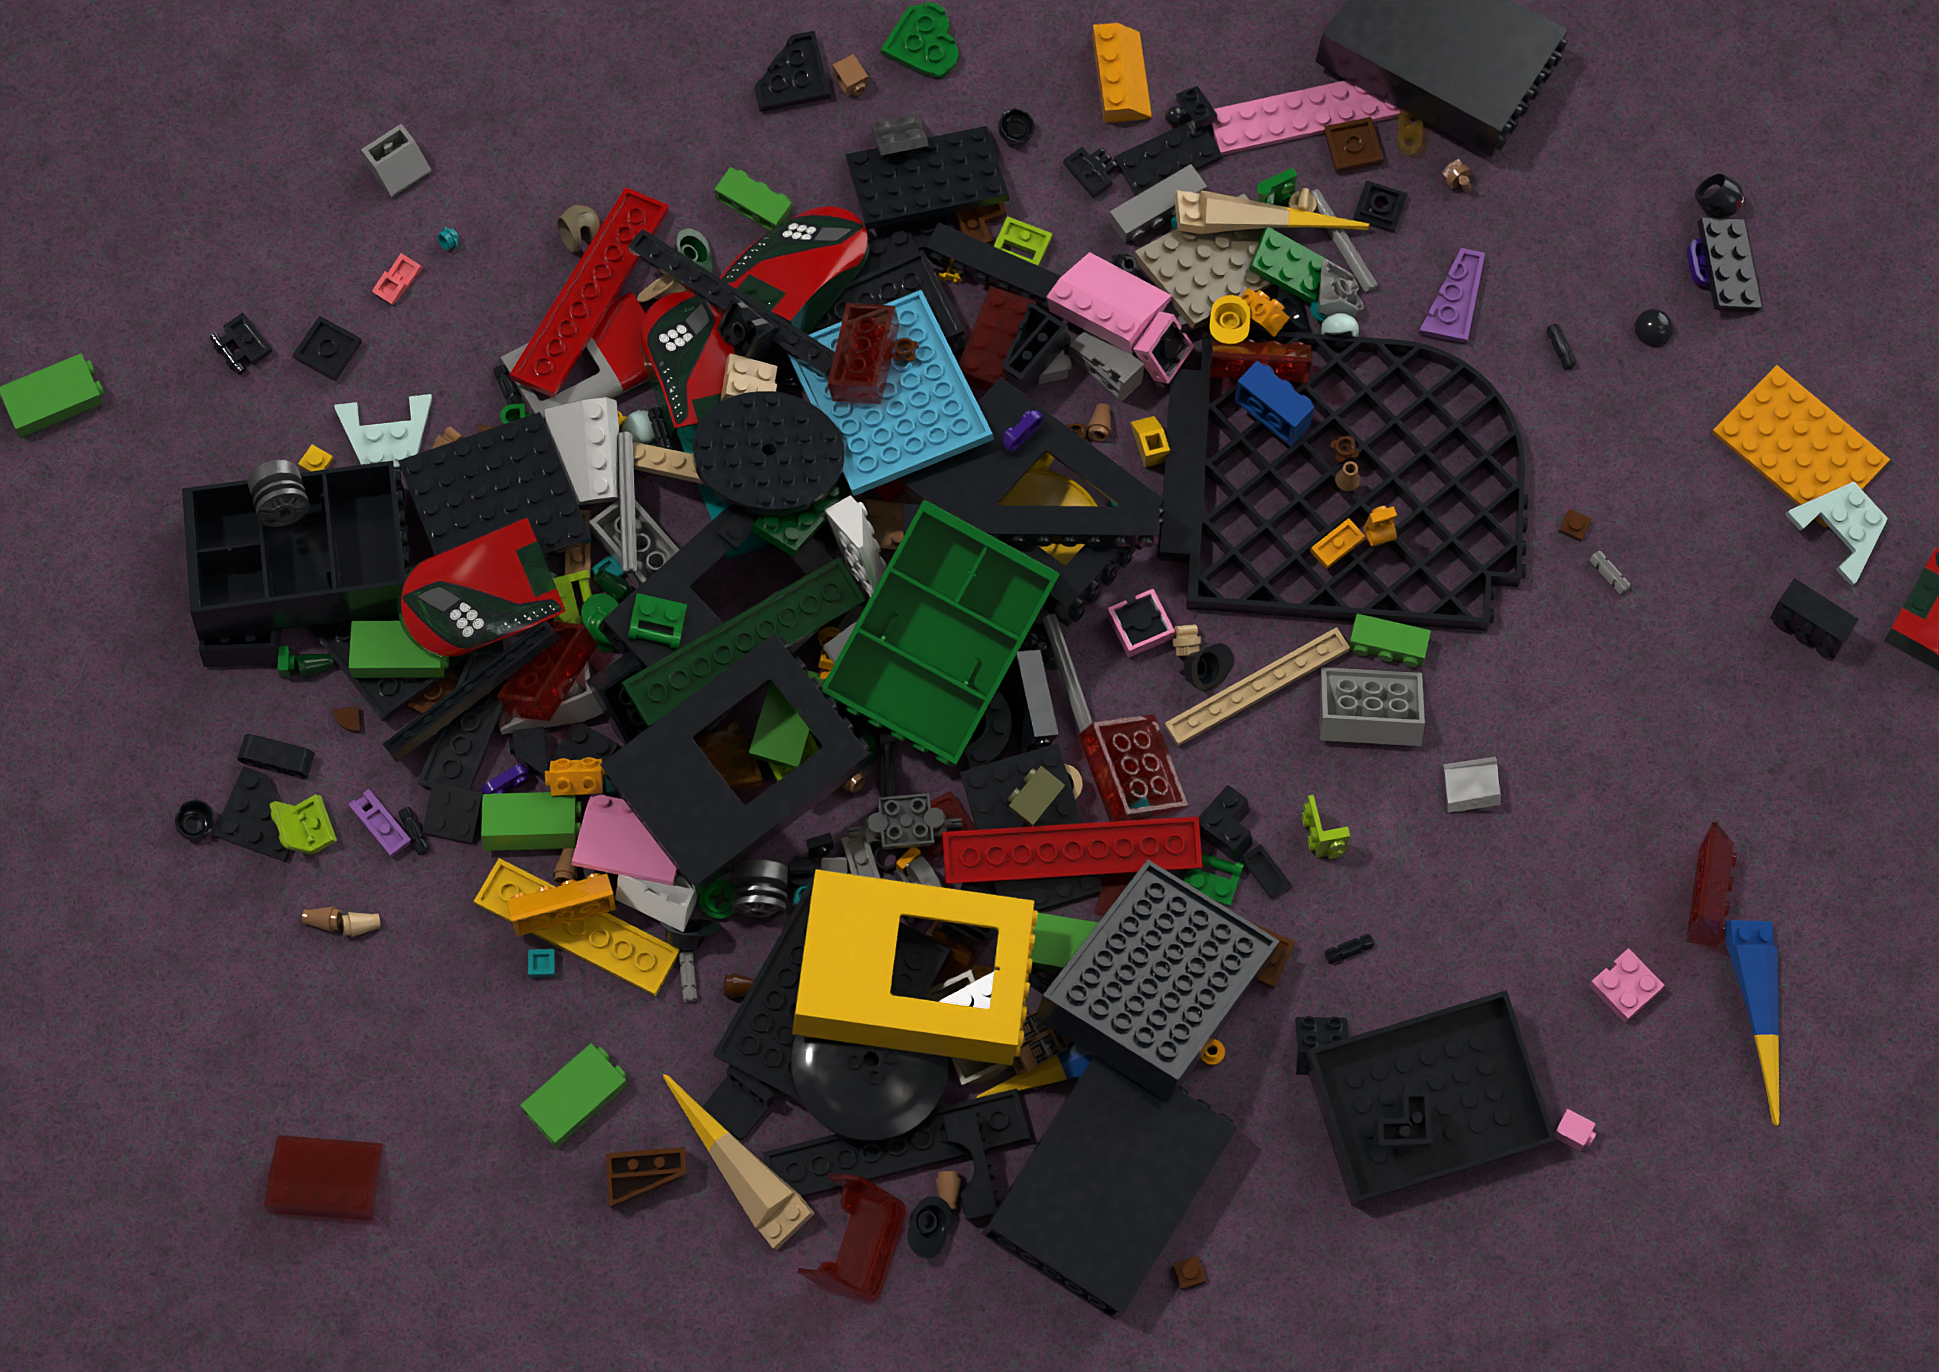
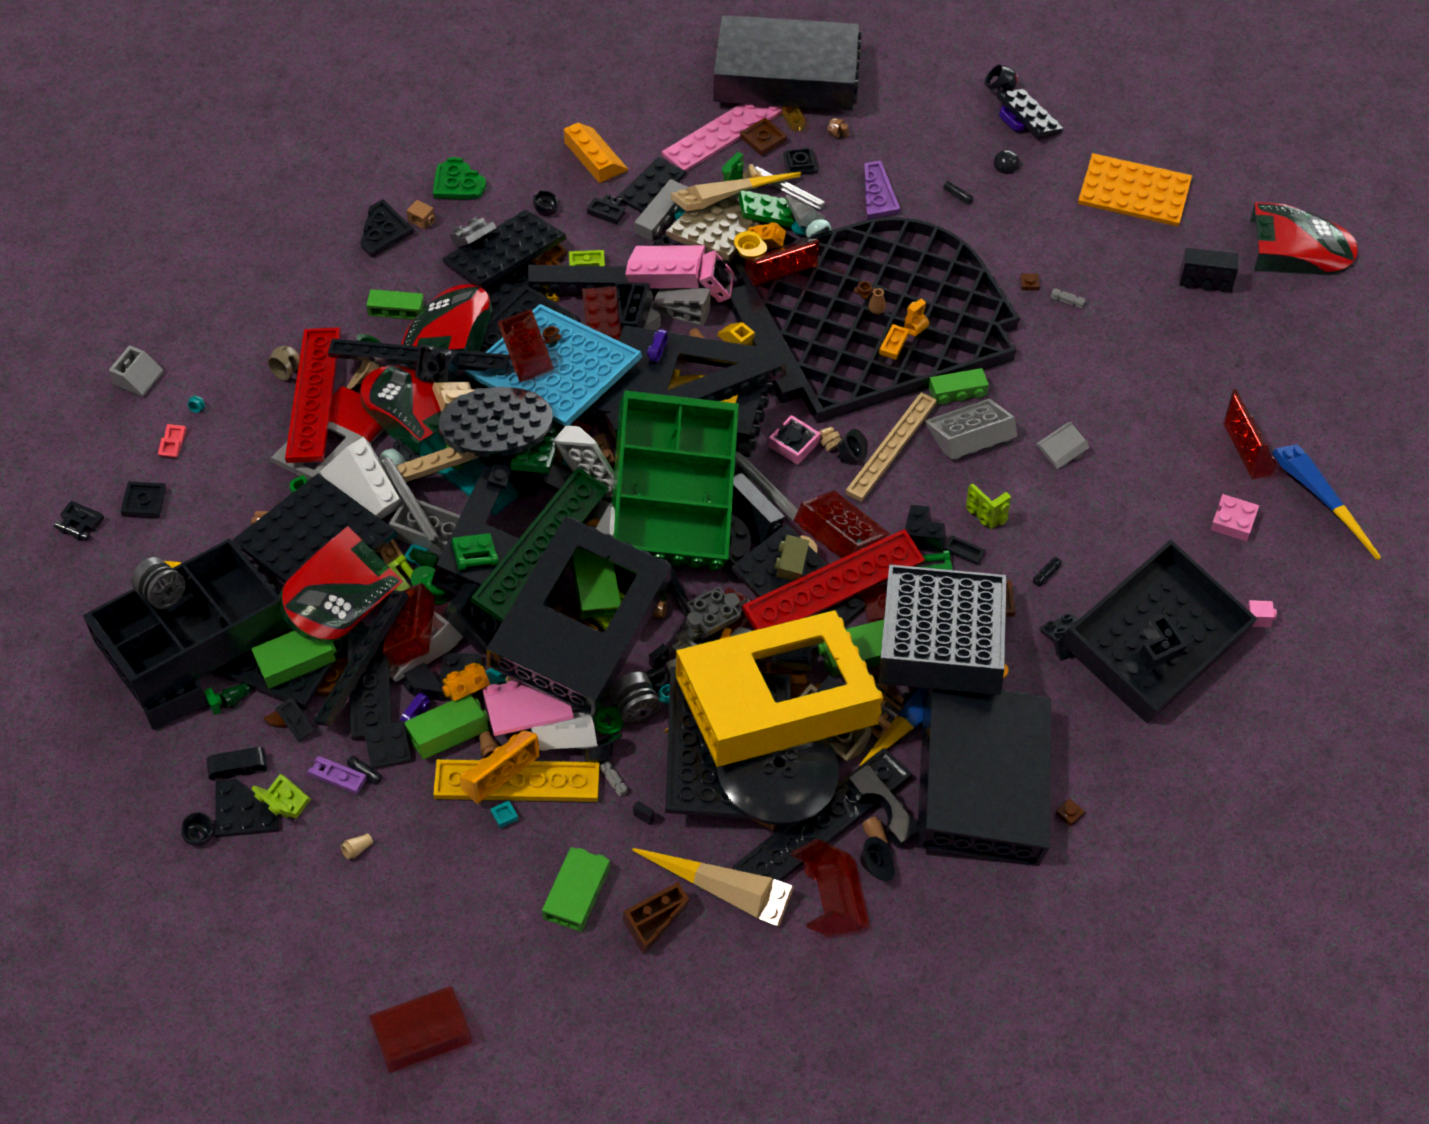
camera: 25 degrees left, 15 degrees down
(323, 918) = (327, 854): medium nougat cone -> none
(365, 730) = (295, 719): none -> black plate
(386, 440) = (212, 536): light aqua wing -> none
(506, 385) = (282, 472): black axle -> none
(697, 1037) = (643, 812): none -> black tile
(736, 985) = (653, 768): reddish brown cone -> none
(739, 1102) = (697, 838): black bracket -> none
(1192, 105) = (651, 151): black plate -> none
(1274, 403) = (806, 278): blue brick -> none
(1851, 518) = (1192, 212): light aqua wing -> none

